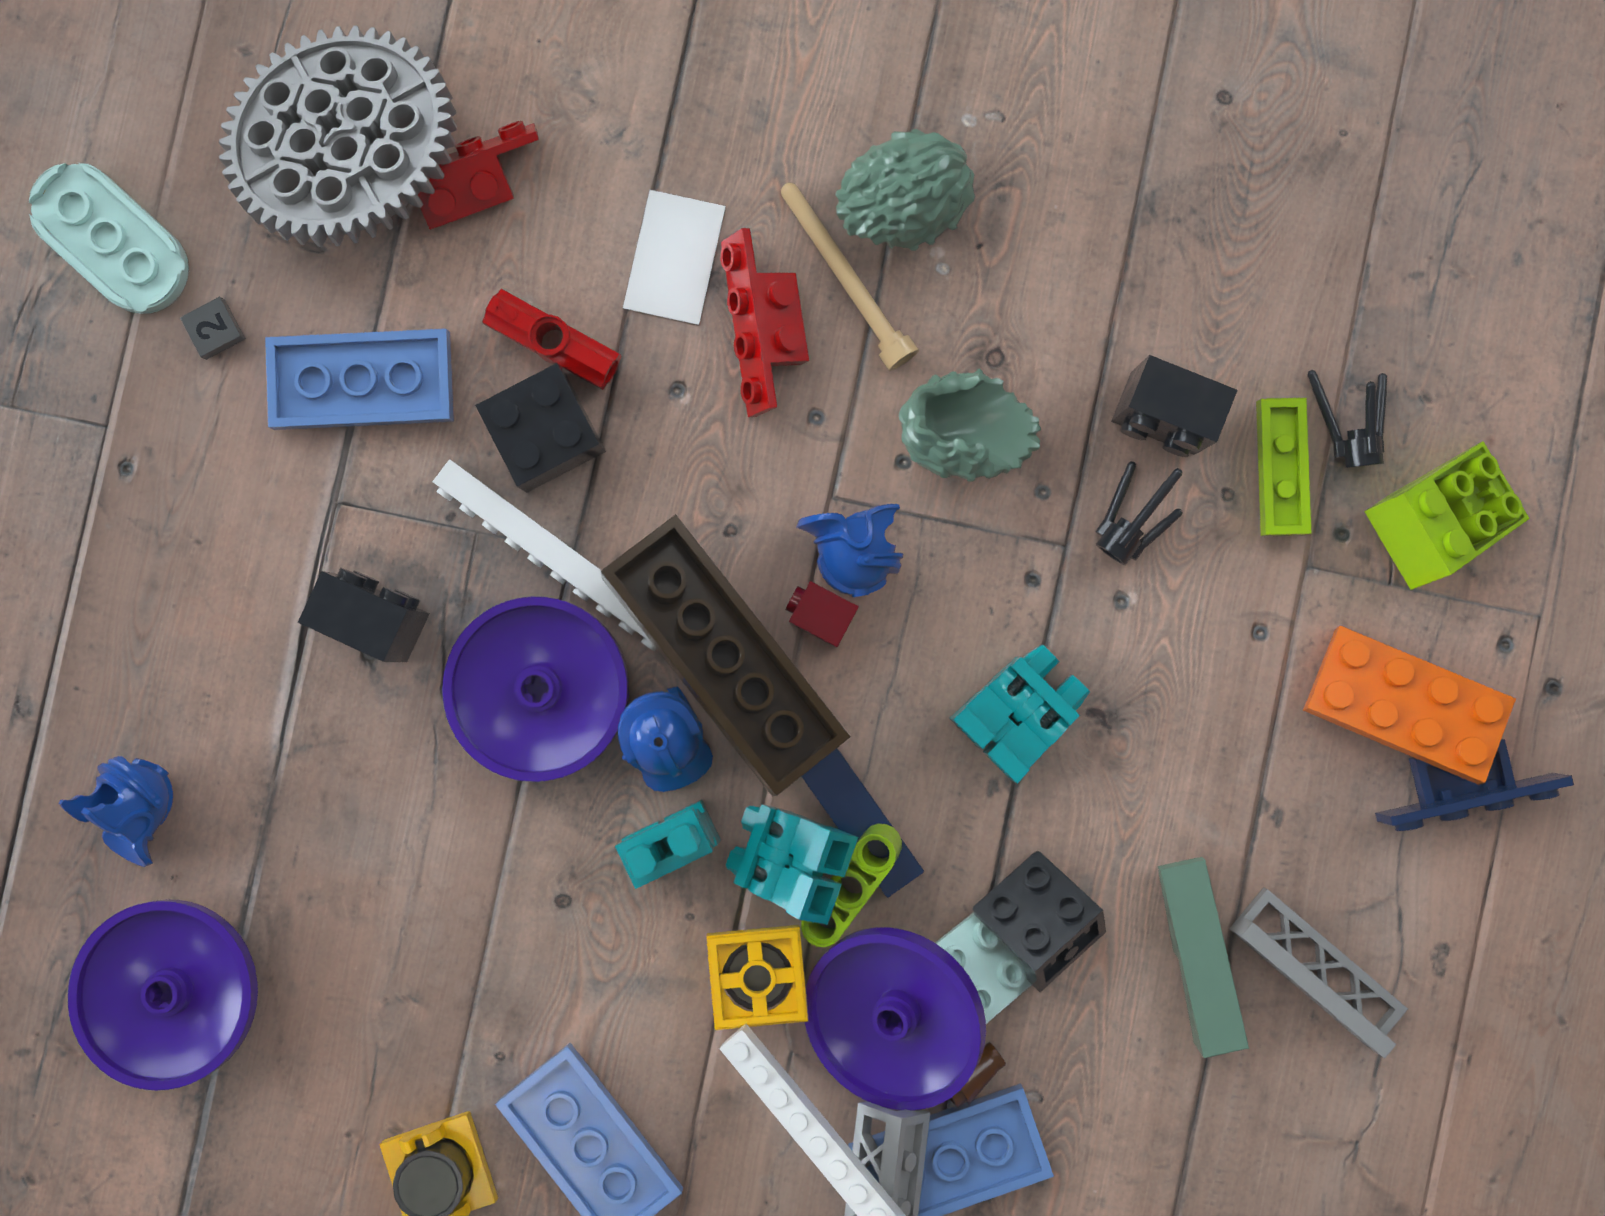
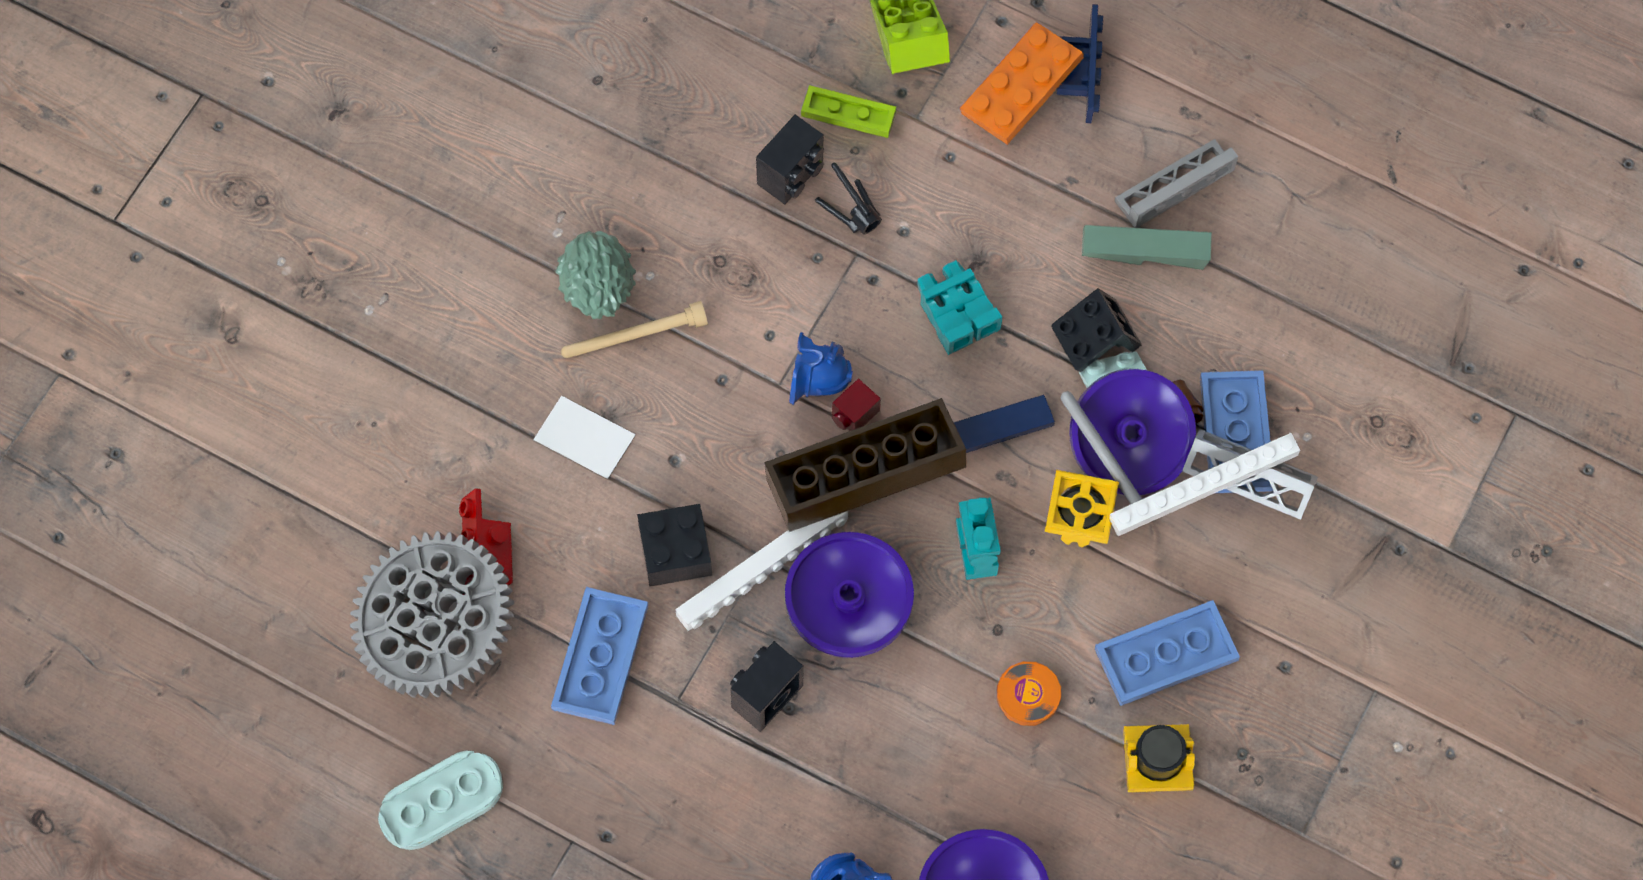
camera: 80 degrees left, 20 degrees down
(212, 328) = (529, 745): dark grey tile -> none
(479, 970) = (1028, 693): none -> orange tile
(528, 326) = (602, 536): red piece -> none
(684, 752) = (909, 533): blue helmet -> none
(764, 319) = (648, 391): red bracket -> none
(788, 861) = (1010, 464): teal hips -> none
(792, 1051) = (1100, 447): none -> light grey piece
(869, 872) = (1037, 420): lime beam -> none
(967, 427) = (762, 283): sand green hair -> none
(1363, 445) = (850, 63): black plant -> none

